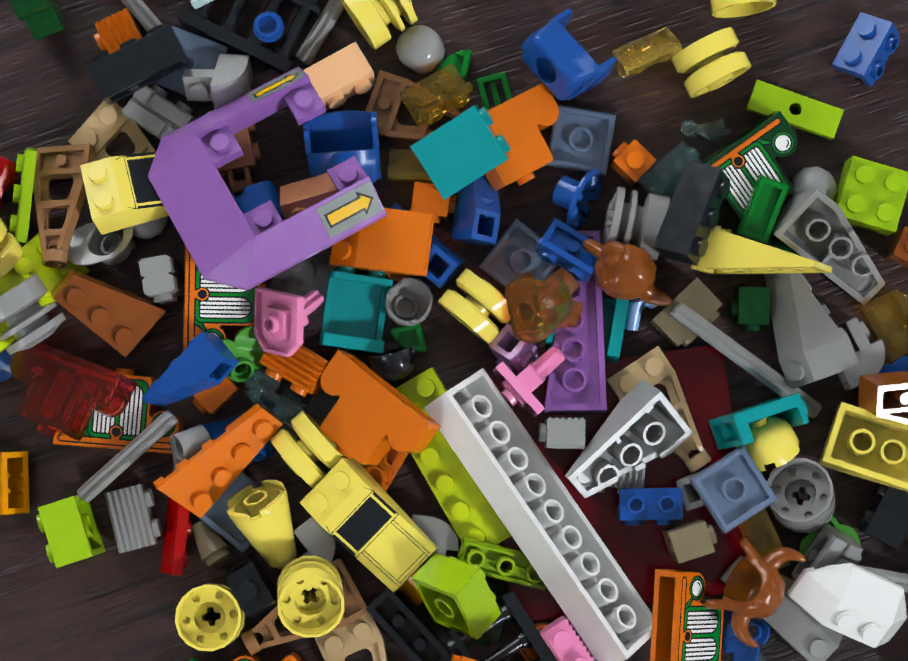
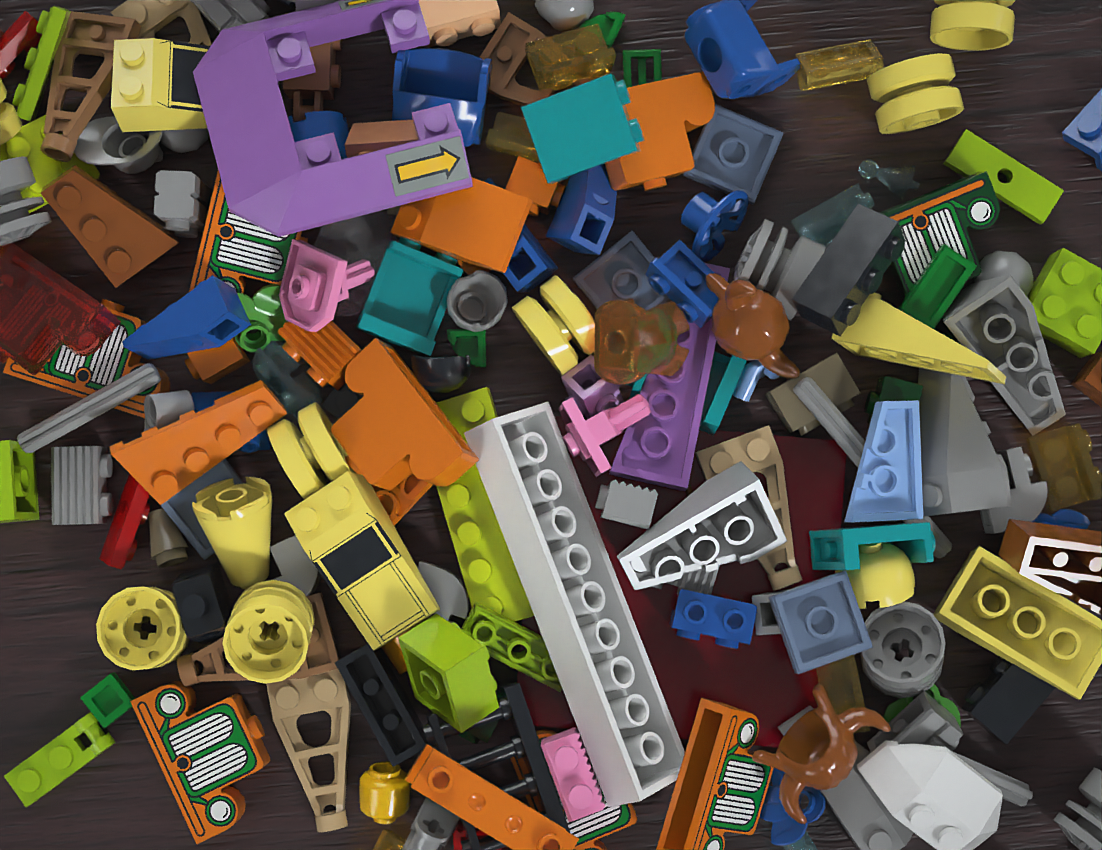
camera: 15 degrees right, 0 degrees up
(632, 161) = (790, 194): orange brick -> none
(689, 540) = (752, 672): dark tan brick -> none
(759, 357) = (890, 466): none -> light blue wing

